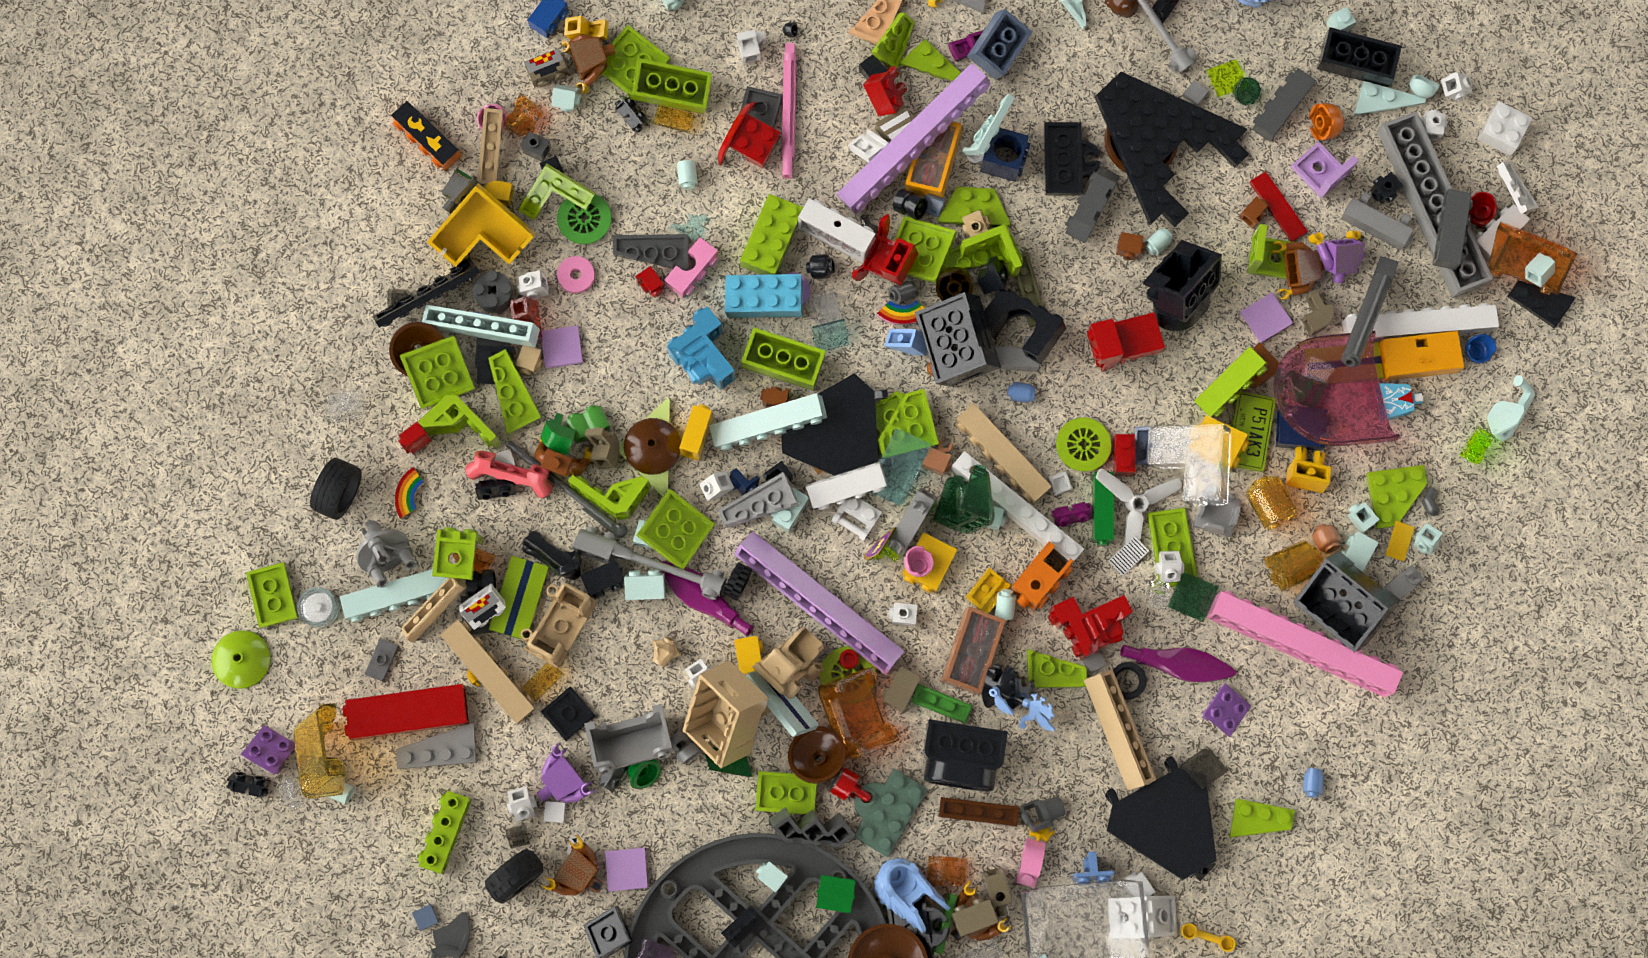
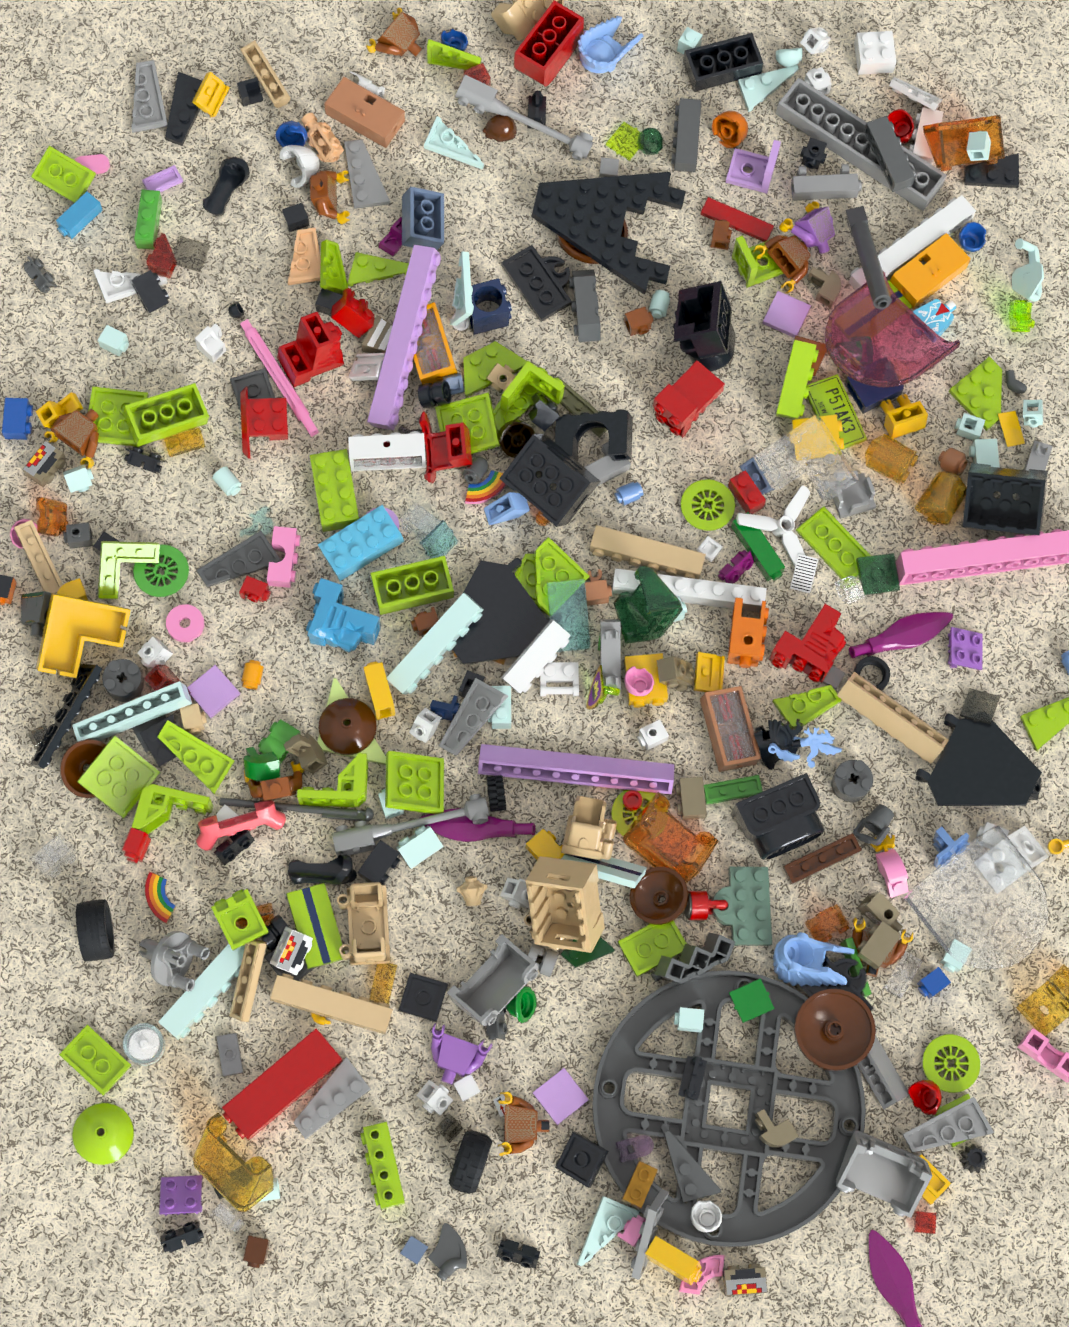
camera: 35 degrees left, 5 degrees down
(298, 835) = (256, 1251): none -> reddish brown brick
(602, 353) = (252, 674): none -> light orange brick
(820, 266) = (392, 490): black head -> none
(828, 105) = (313, 351): none -> red brick
(956, 574) = (675, 673): none -> dark tan brick
(1005, 604) = (731, 673): light aqua brick -> none
(1058, 756) = (857, 771): none -> dark grey brick
(1169, 566) = (844, 560): white brick -> none

